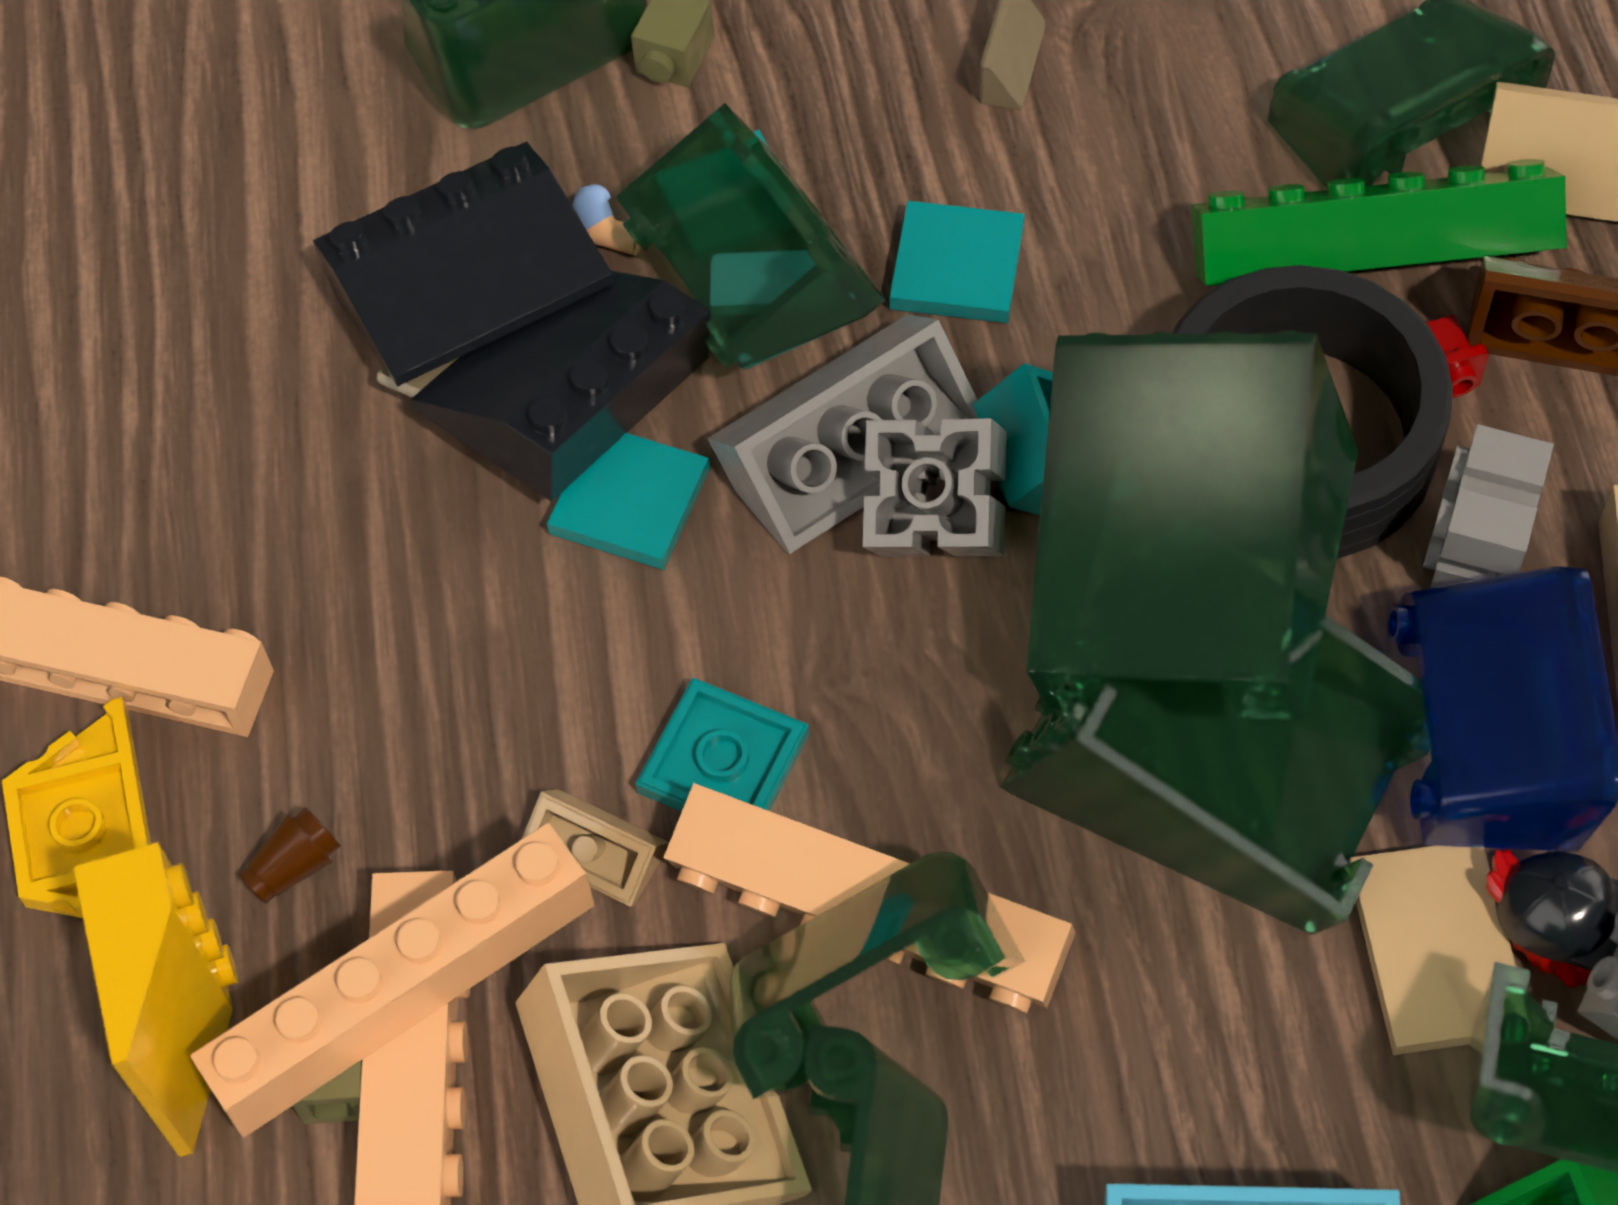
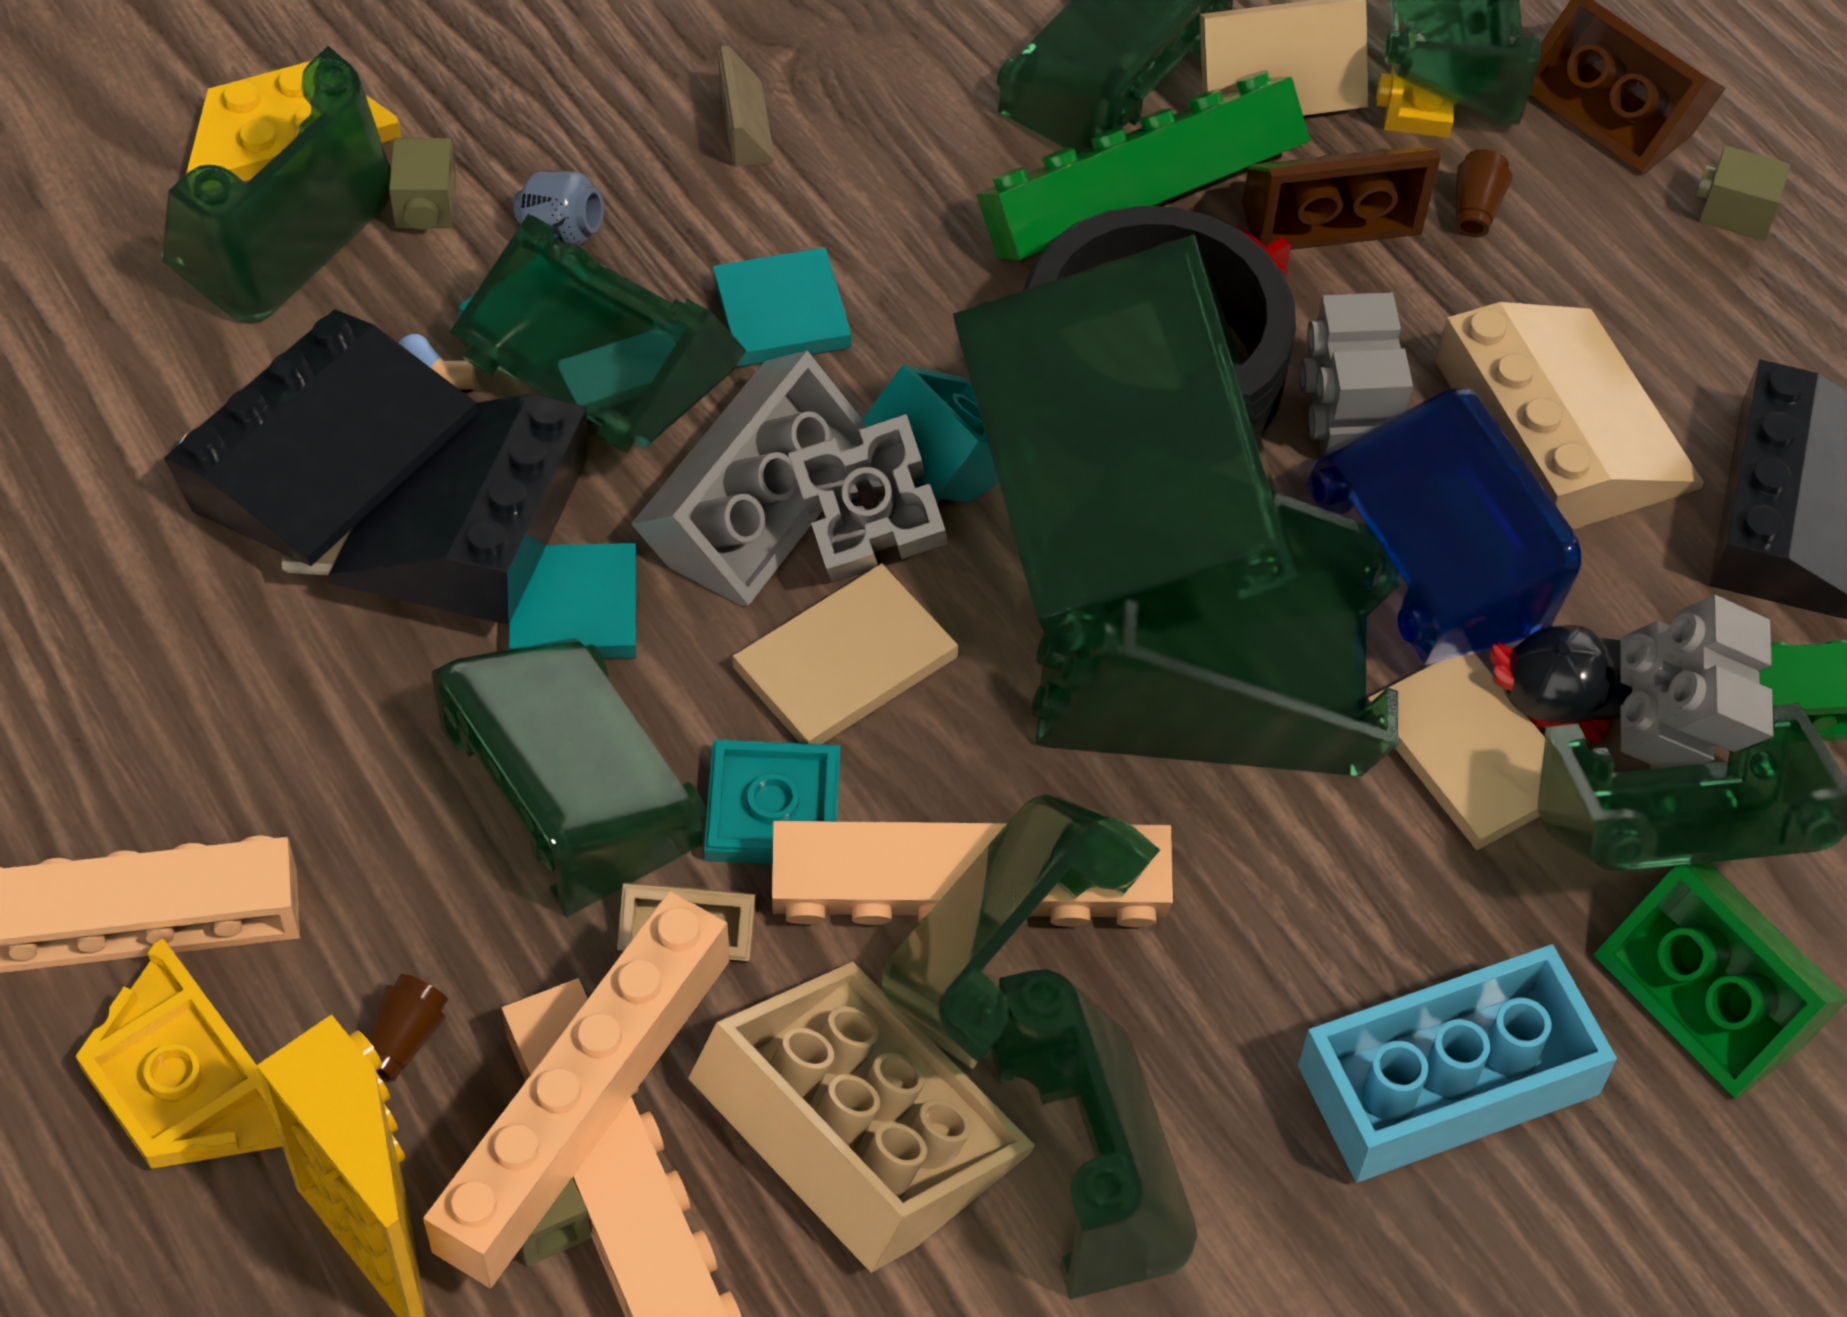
camera: 30 degrees left, 5 degrees down
(541, 659) = (570, 765): none -> clear green windscreen
(787, 99) = (564, 201): none -> sand blue head
(856, 637) = (845, 657): none -> tan tile

